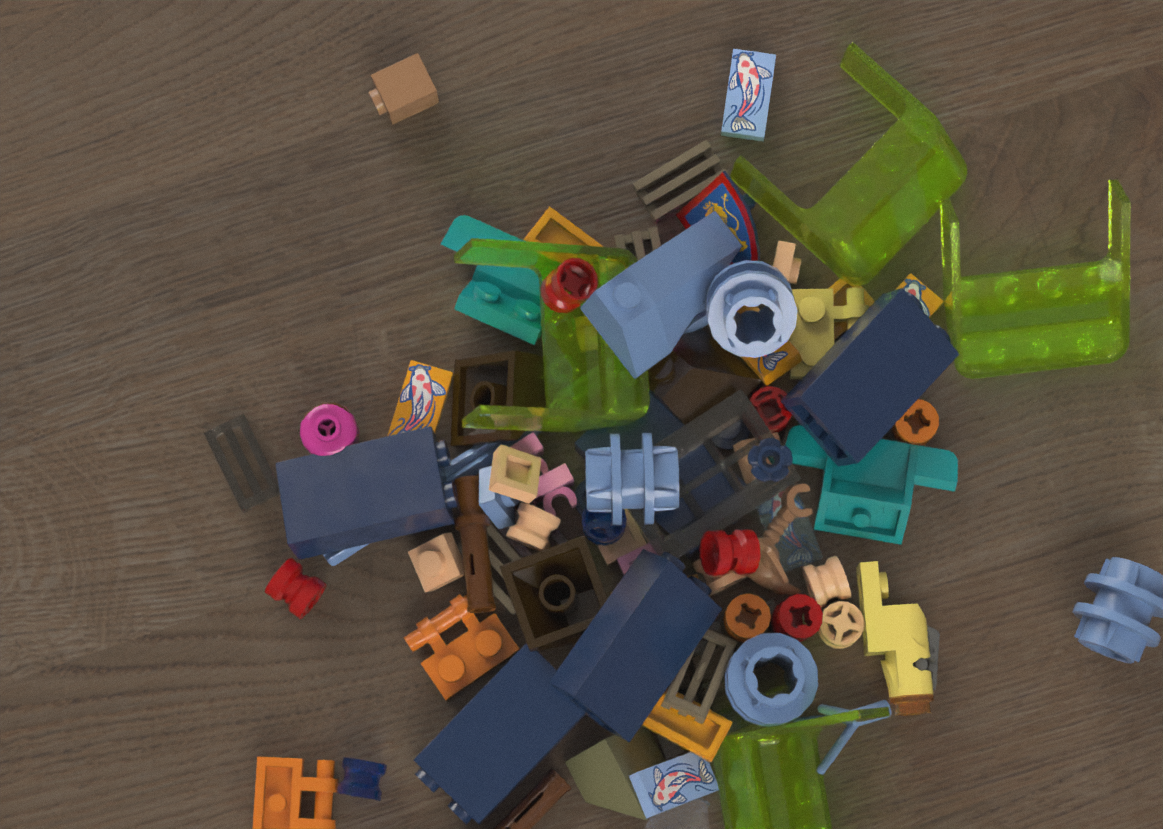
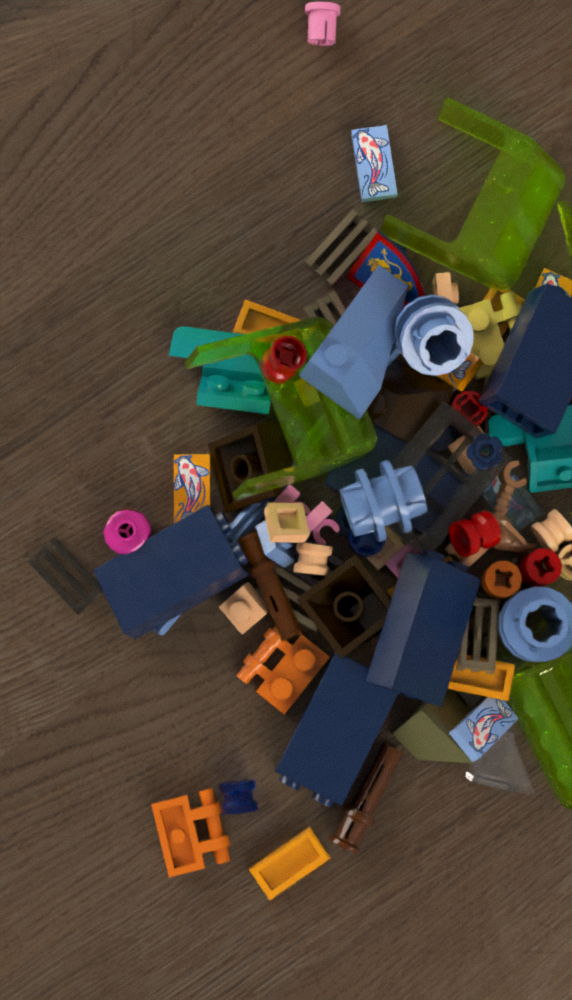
camera: 20 degrees left, 5 degrees up
(296, 589) = (138, 662): red wheel -> none
(403, 89) = (100, 240): medium nougat brick -> none

